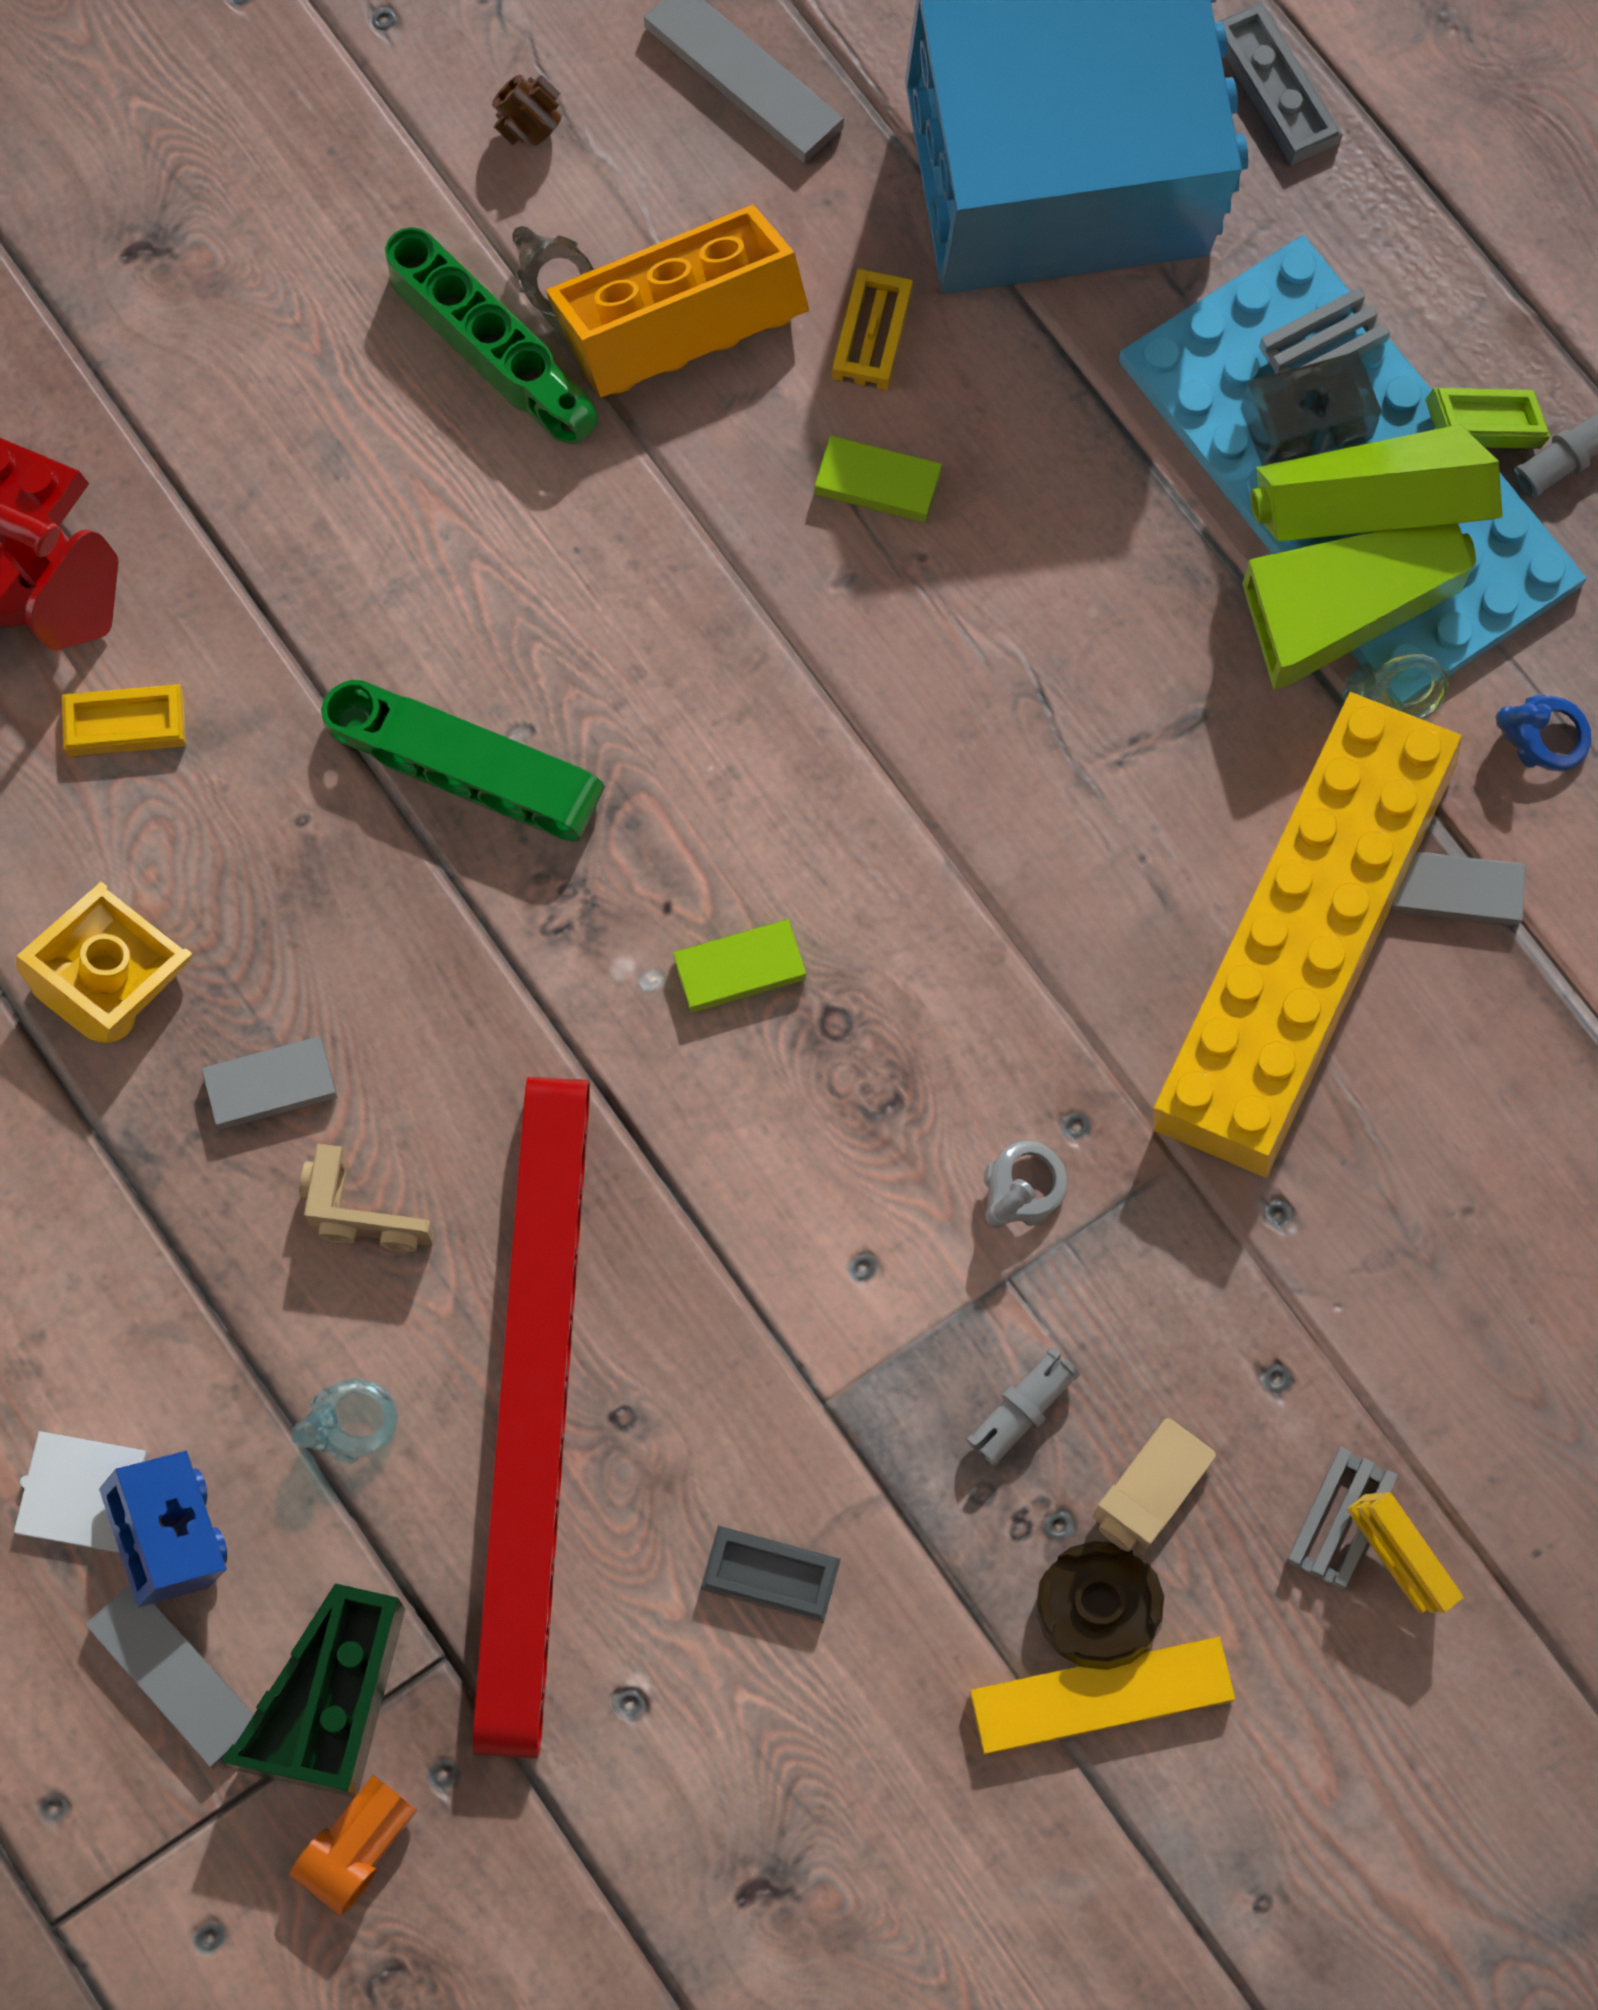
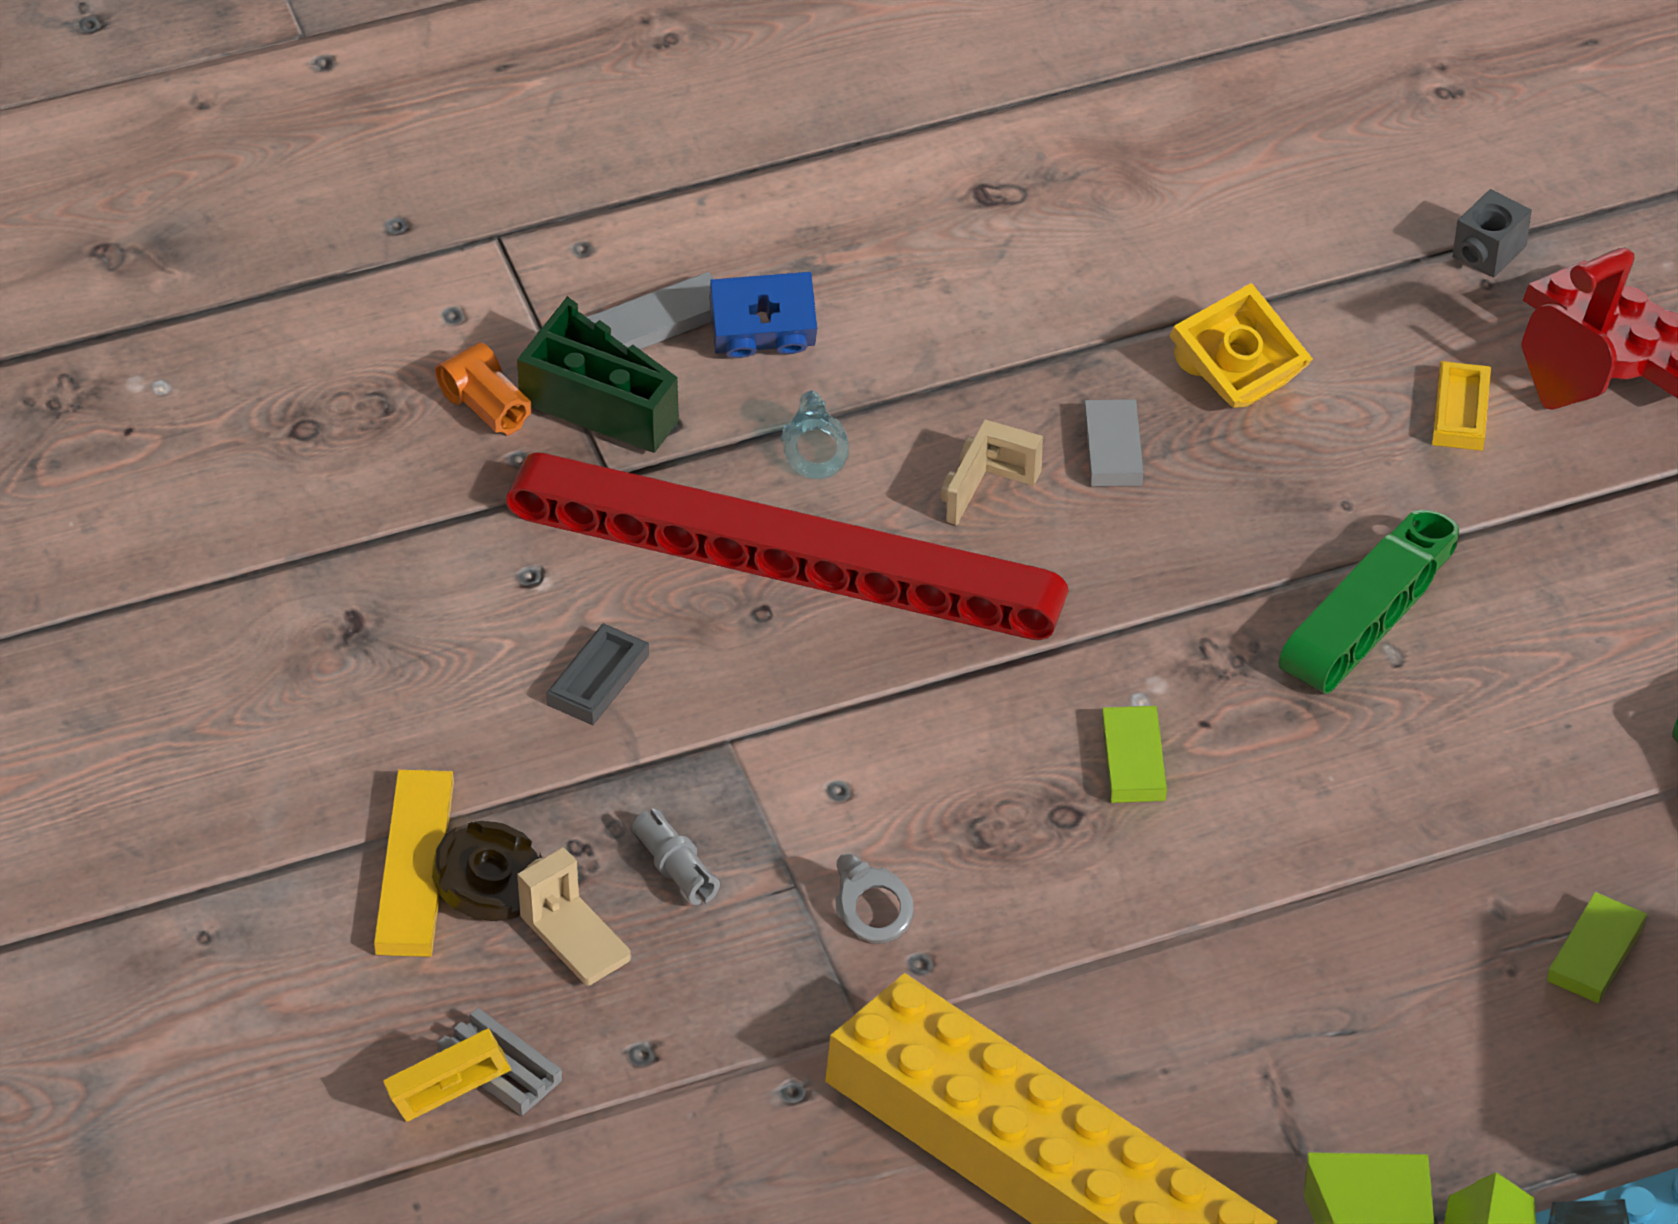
camera: 105 degrees right, 25 degrees down
(63, 1491) = (834, 288): white piece -> none

